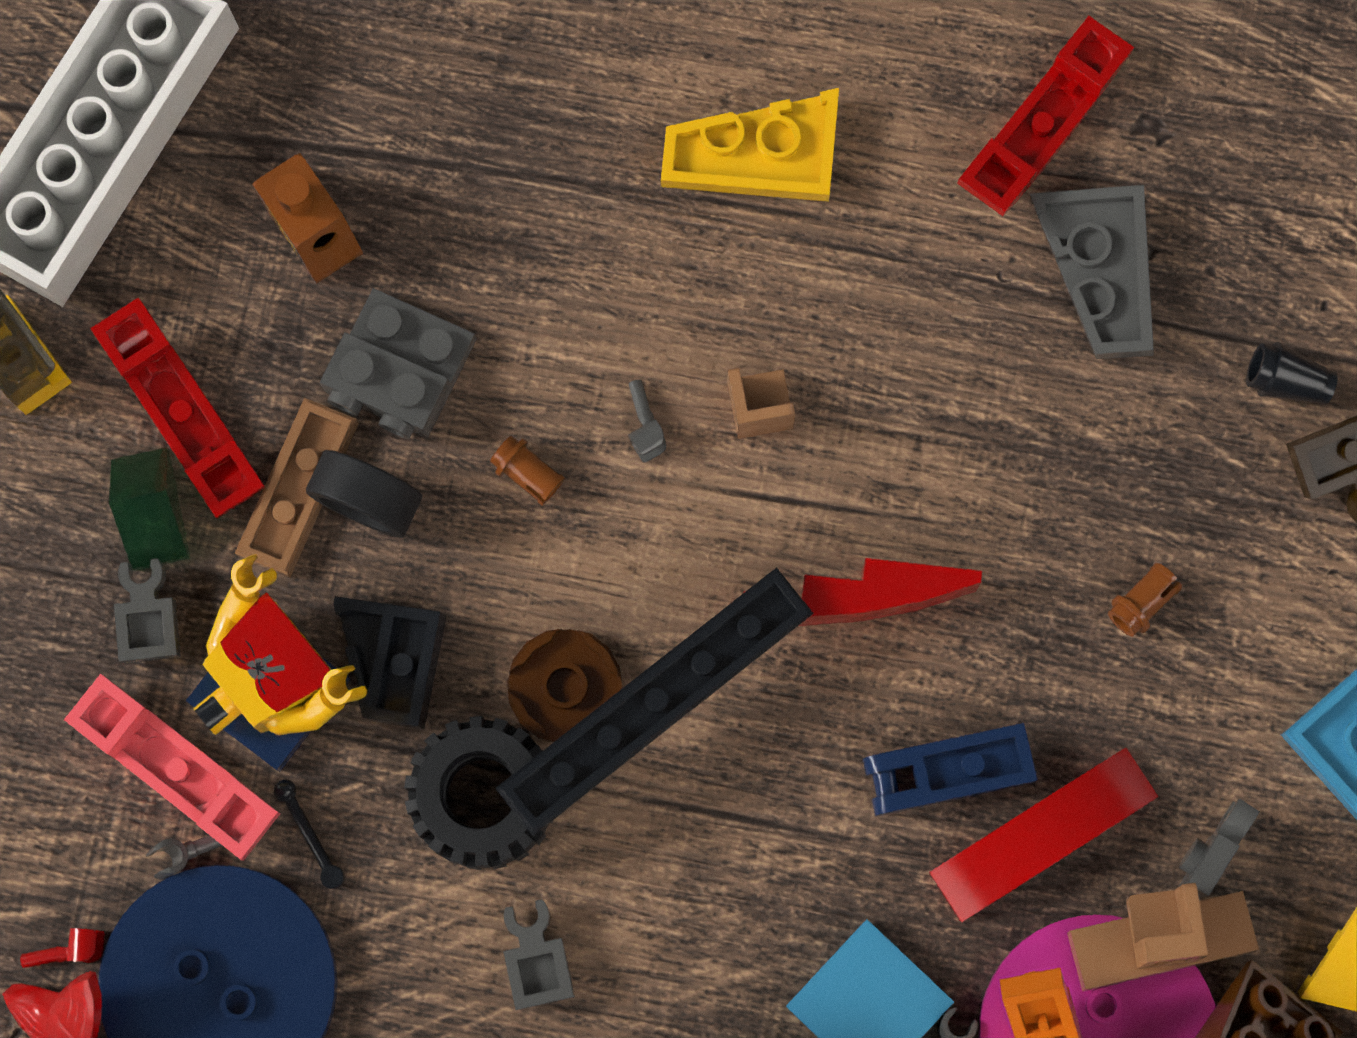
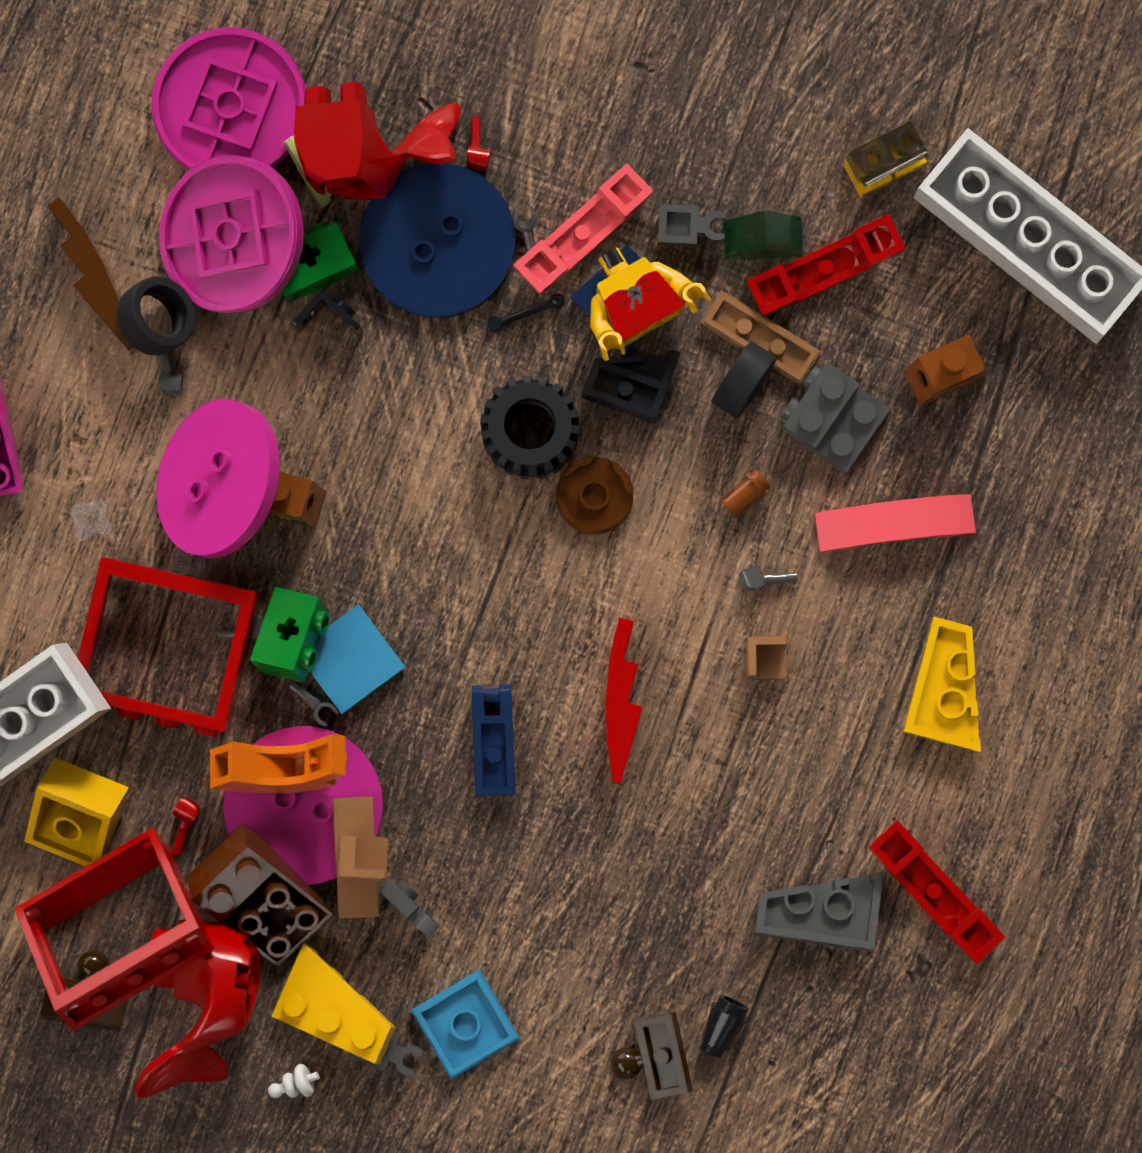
camera: 95 degrees right, 5 degrees up
(536, 260) = (894, 522): none -> coral slope
(538, 967) = (411, 447): dark grey plate -> none
(654, 701) = (568, 548): black tile -> none
(1043, 834) = (440, 796): red slope -> none
(1144, 600) = (585, 893): dark orange pin -> none

